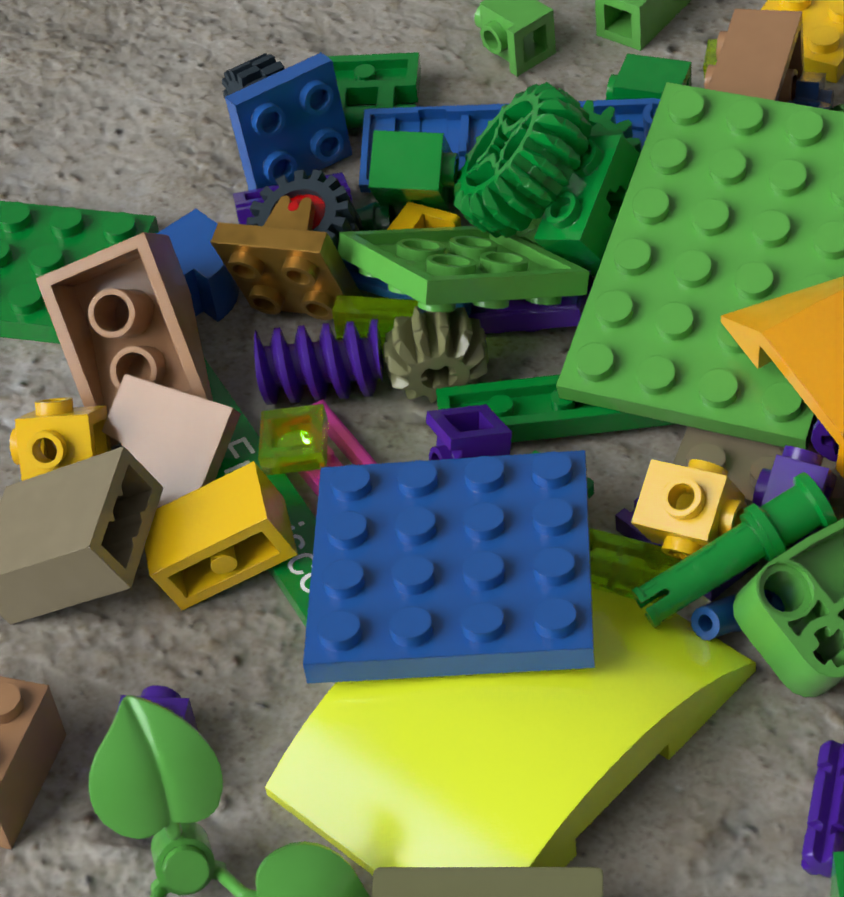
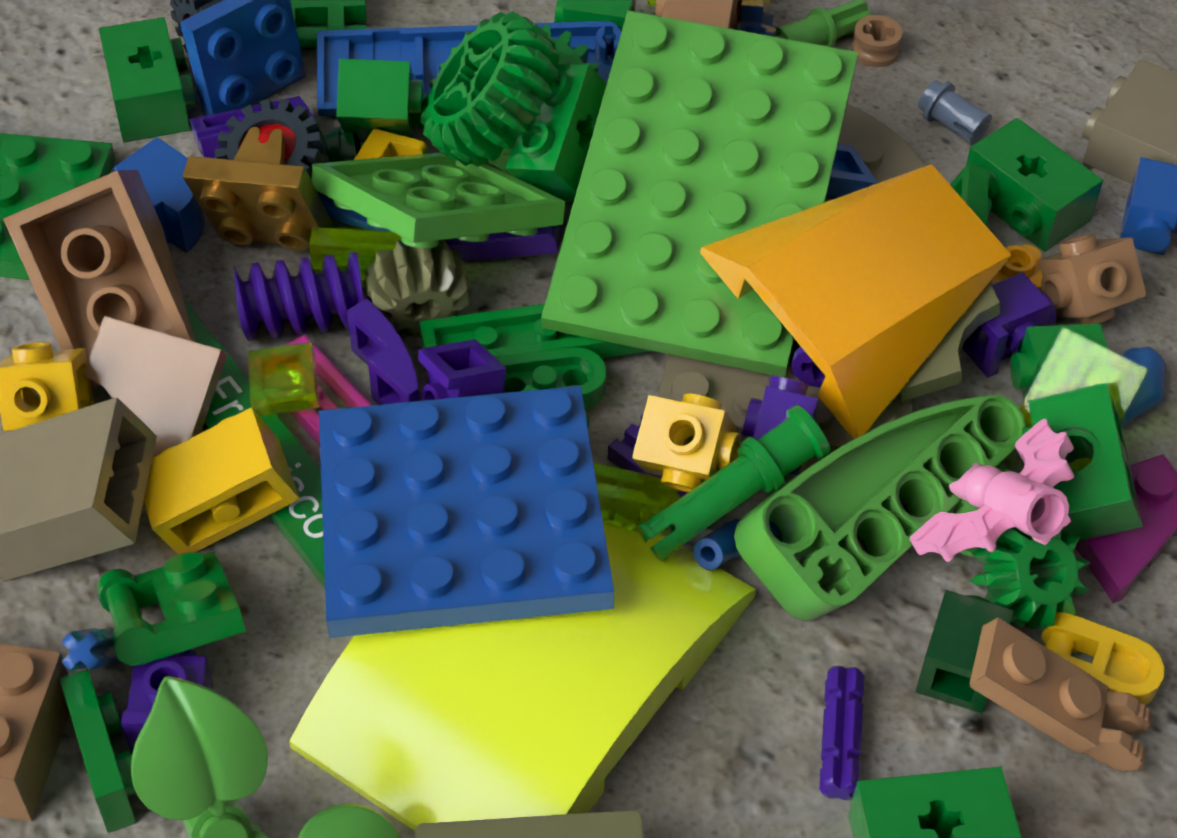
camera: 15 degrees left, 5 degrees up
(73, 758) = (109, 773): none -> green plate
(81, 685) = (89, 649): none -> blue axle
(182, 648) = (192, 599): none -> green plate
(194, 155) = (146, 79): none -> green brick
(394, 415) = (384, 352): none -> dark purple slope
(592, 434) = (557, 370): none -> green plate

